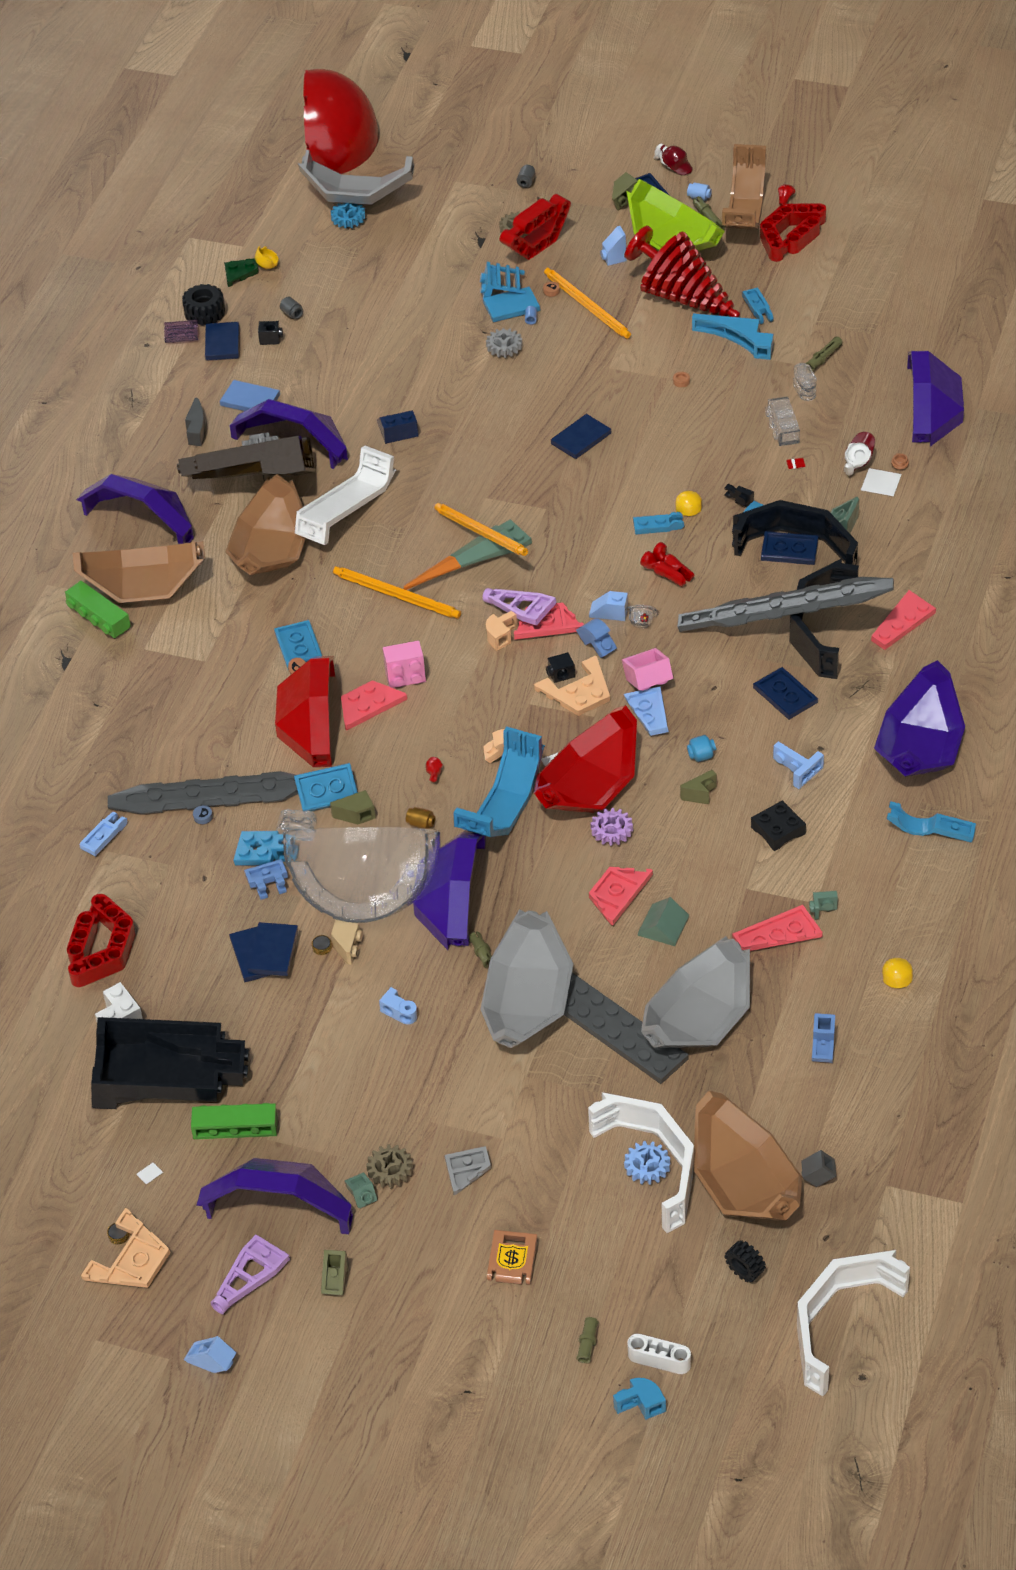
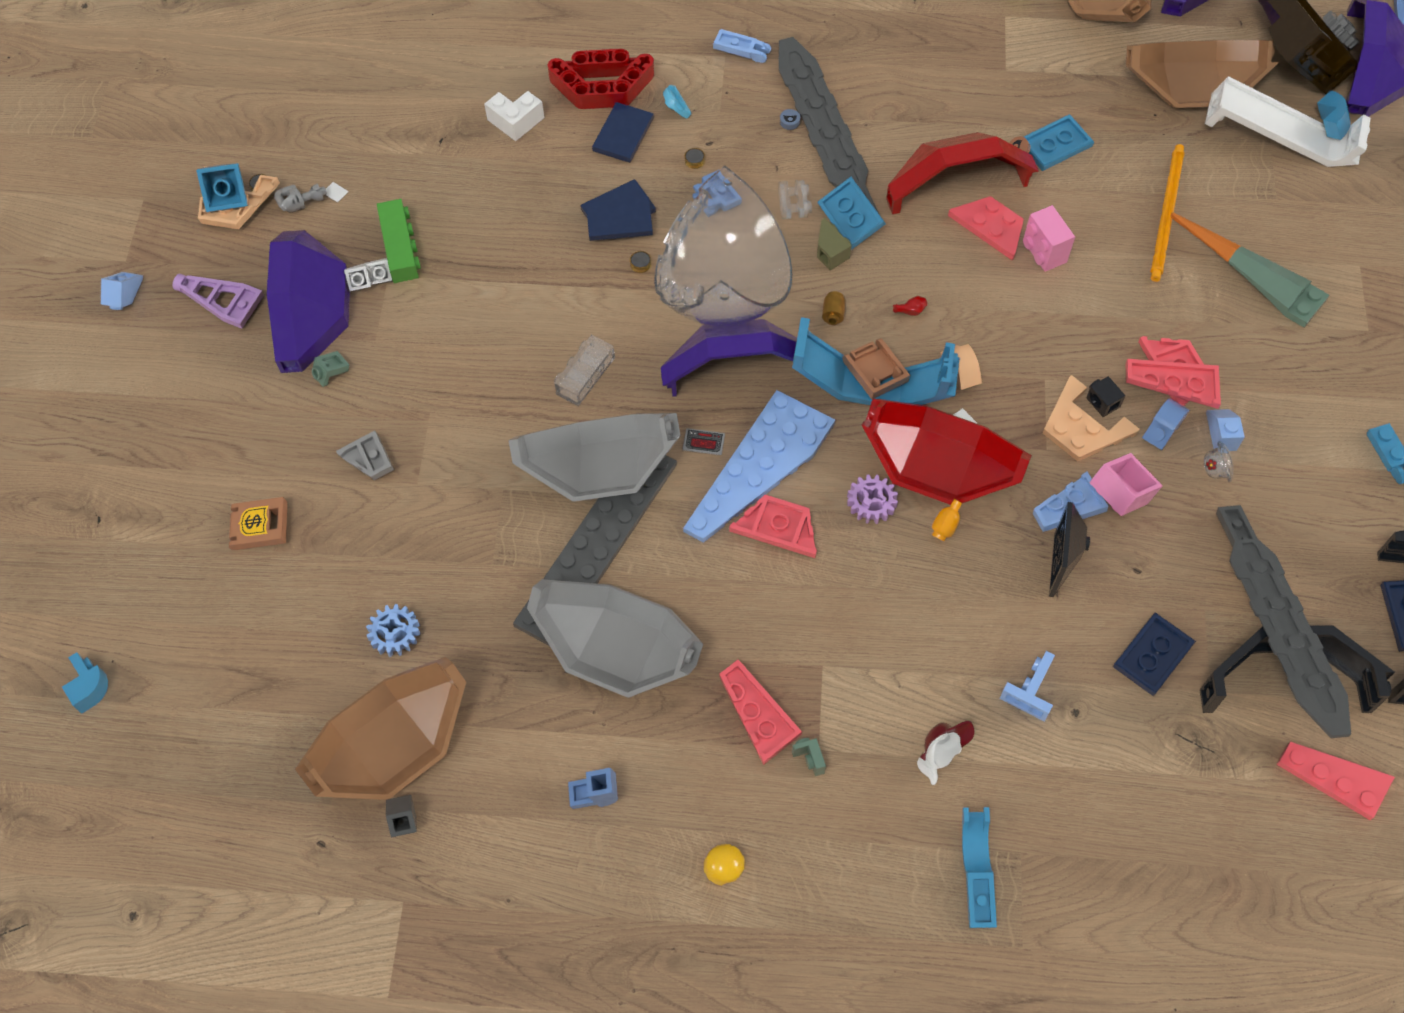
camera: 75 degrees right, 15 degrees up
(124, 1248) = (222, 187): none -> dark azure slope
(149, 892) = (675, 101): none -> medium azure plate
(150, 1202) = (295, 199): none -> light grey piece
(163, 1061) = (453, 163): black panel -> none
(168, 937) = (623, 132): none -> dark blue tile
(220, 889) = (694, 158): none -> tile
(267, 1144) = (368, 274): none -> white slope
(270, 848) = (766, 178): dark azure plate -> none
(334, 1272) = (218, 365): olive slope -> none
(340, 465) = (1334, 114): none -> dark azure brick
(346, 938) = (640, 280): tan slope -> none
(389, 1165) = (359, 385): dark tan gear -> none
(397, 1007) = (567, 345): light blue leg -> none
(427, 996) = (584, 370): none -> clear brick
(481, 529) = (1288, 265): light orange piece -> none
(481, 948) = (667, 404): olive pin -> none
(489, 800) = (873, 366): none -> nougat container
(499, 629) = (1143, 318): light nougat brick -> none
(534, 613) = (1184, 349): lavender plate -> none
(547, 886) = (773, 448): none -> light blue wing
(564, 617) = (1183, 380): none -> coral wing
(587, 1340) = (158, 616): olive pin -> none
(646, 783) = (947, 521): none -> light orange plant
(654, 1119) = (411, 653): white panel -> none
(659, 1353) = (142, 690): white beam -> none
(664, 922) = (743, 584): sand green slope -> none
(666, 565) = (1317, 480): red piece -> none
(696, 714) = (1068, 546): none -> black slope
(698, 788) = (957, 577): olive slope -> none
(701, 748) = (1024, 571): dark azure head -> none
(745, 1261) = (260, 755): black tyre -> none
(778, 825) = (925, 682): black brick -> none
(831, 825) = (942, 745): none -> white hair
(842, 1274) = (117, 850): white panel -> none
(923, 724) = (1130, 829): dark purple panel -> none

